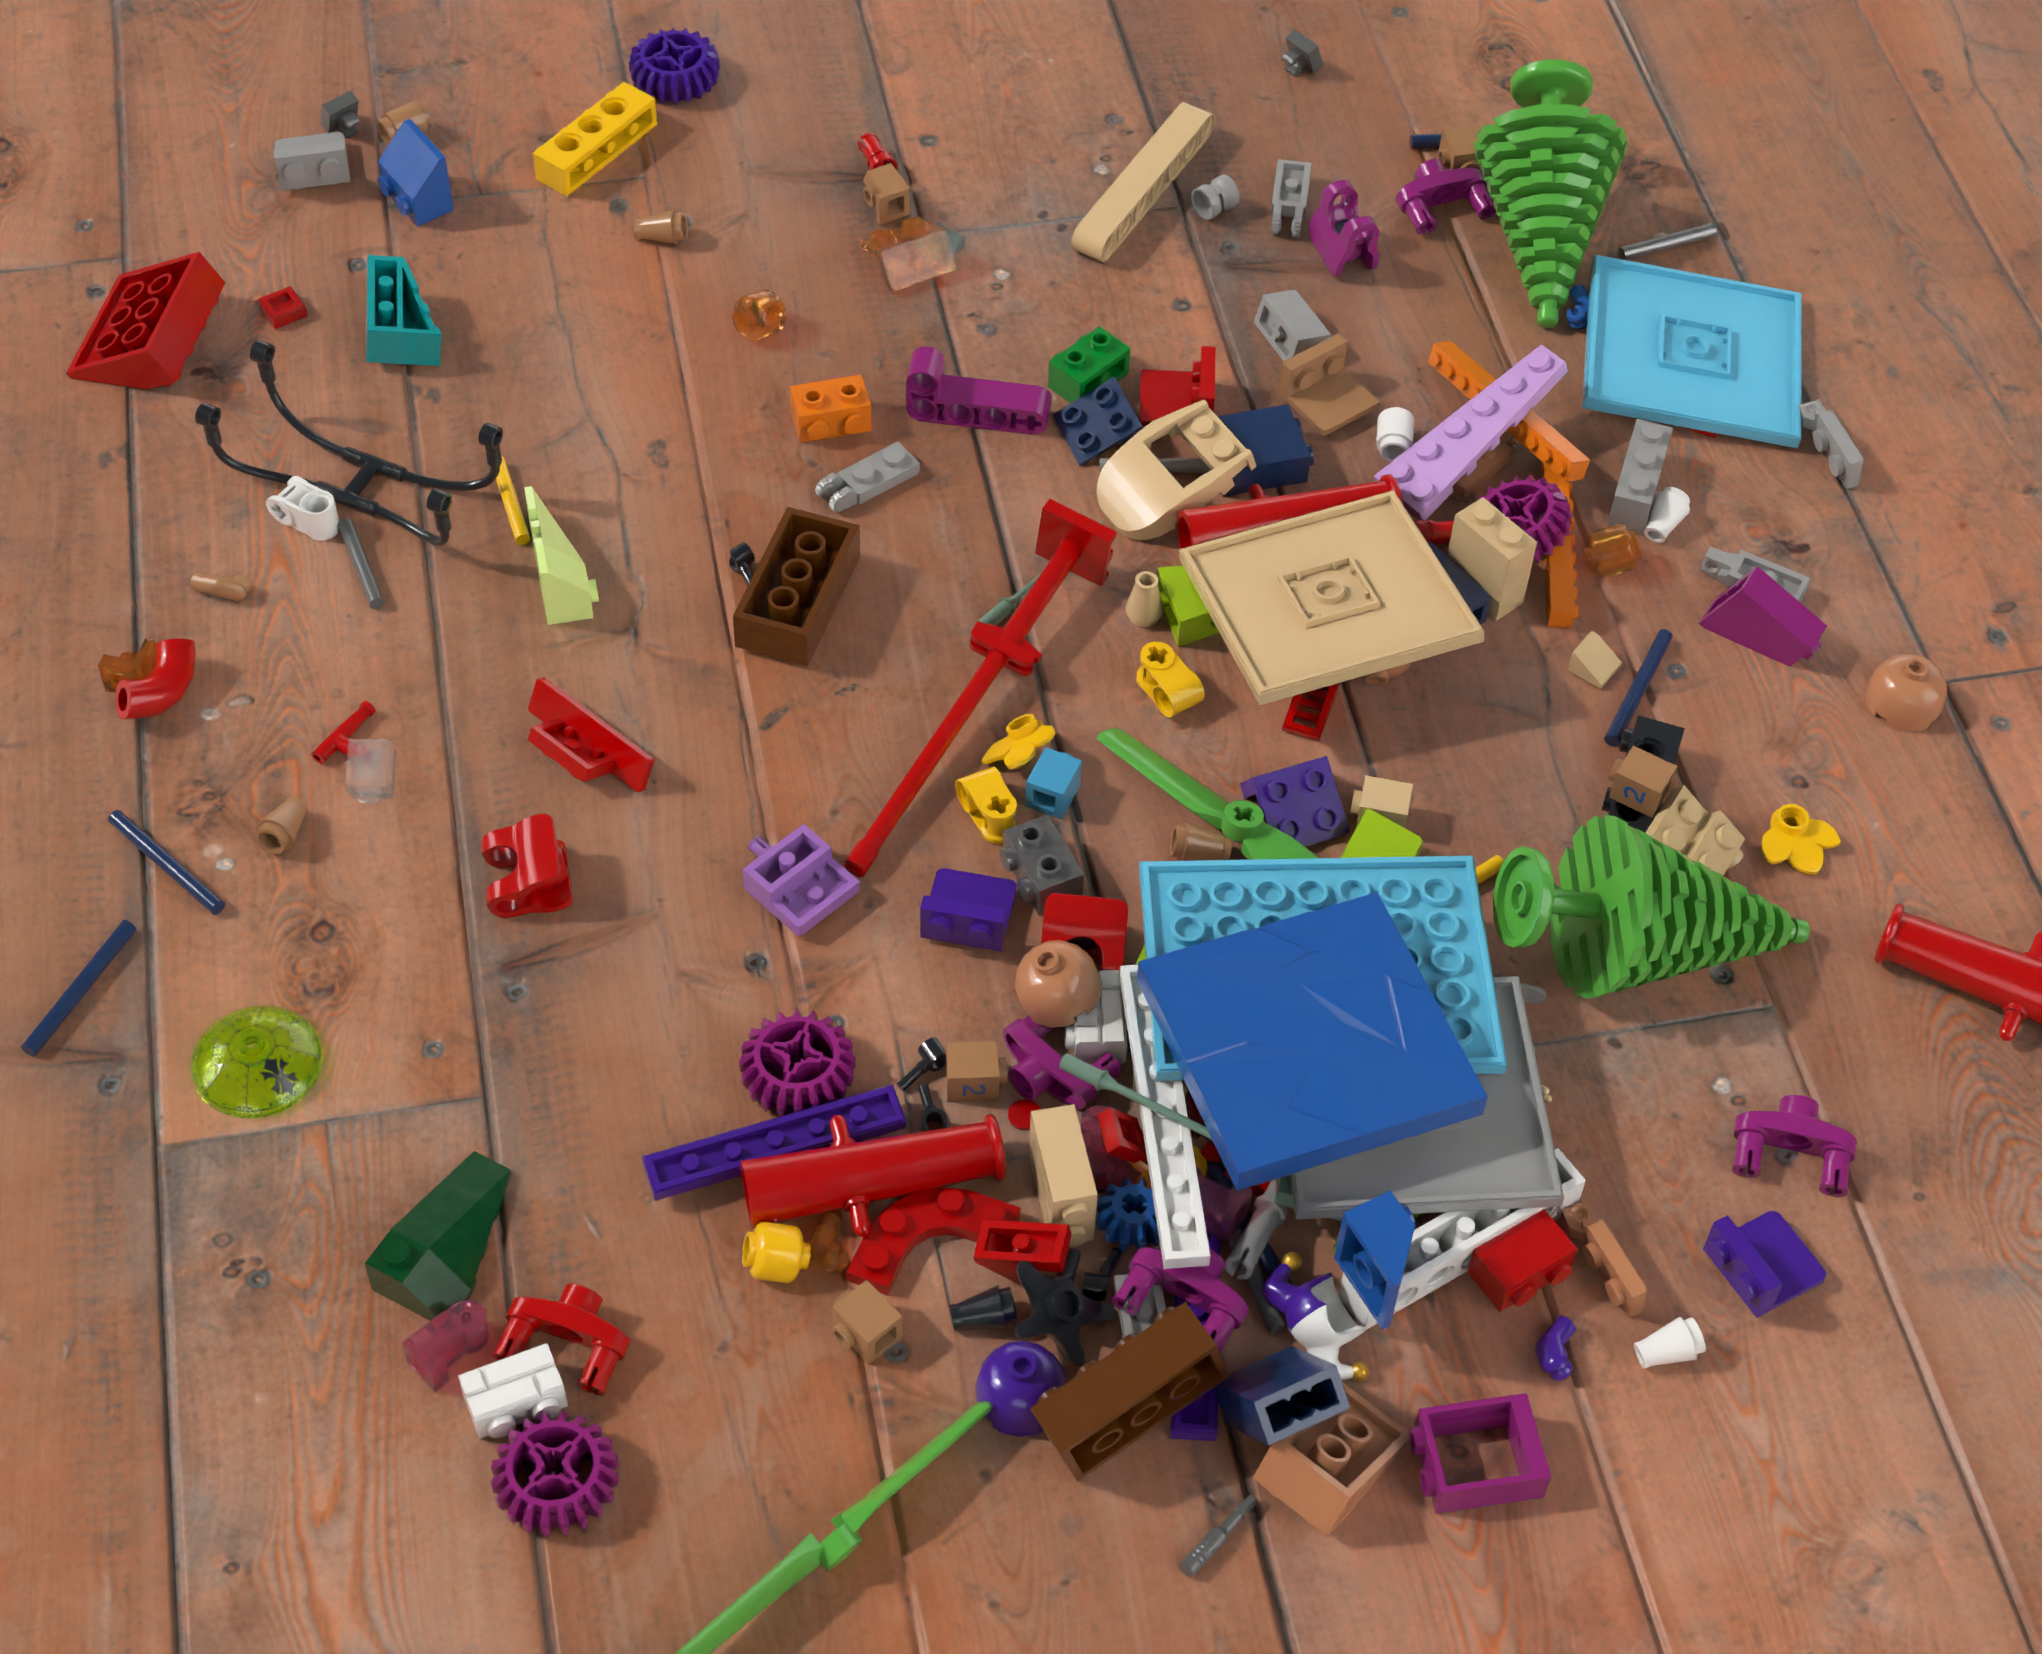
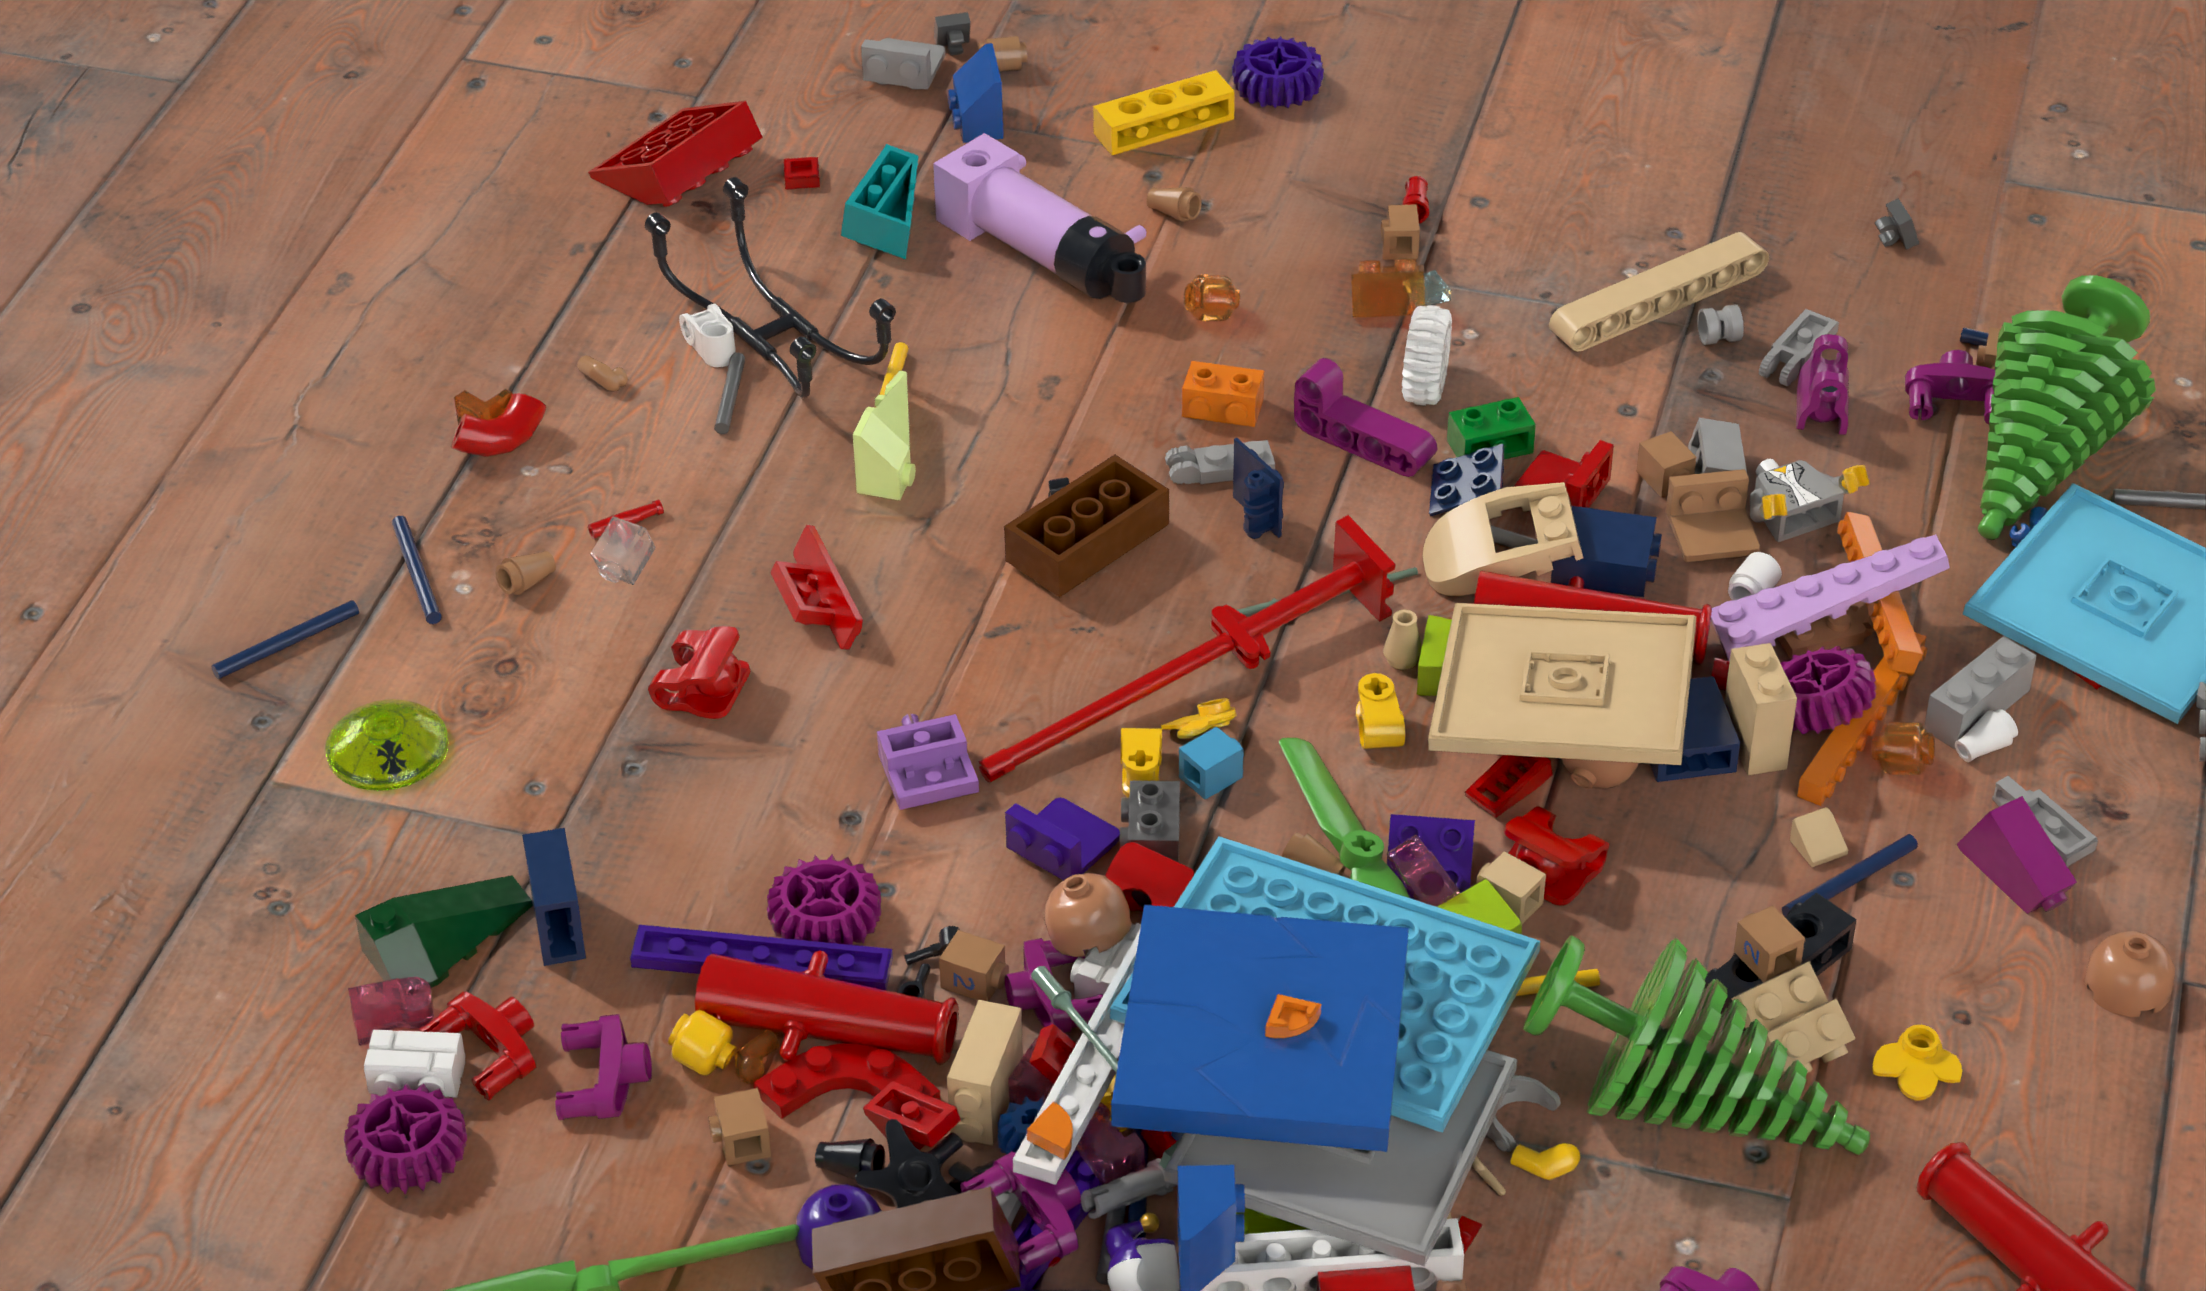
camera: 30 degrees right, 10 degrees down
(488, 275) = (984, 192): none -> lavender piece
(545, 1161) = (554, 896): none -> dark blue brick
(714, 1308) = (618, 1068): none -> magenta connector
(930, 496) = (1258, 491): none -> dark blue hinge
(995, 310) = (1426, 355): none -> white gear
(1188, 1217) = (1052, 1131): none -> orange tile
(1255, 348) = (1664, 458): none -> medium nougat brick
(1313, 825) = (1422, 872): none -> clear pink leg
(1339, 1022) = (1291, 1017): none -> orange tile
(1385, 342) = (1799, 497): none -> light grey torso
(1396, 761) = (1565, 861): none -> red piece
(1572, 1057) = (1548, 1163): none -> yellow arm

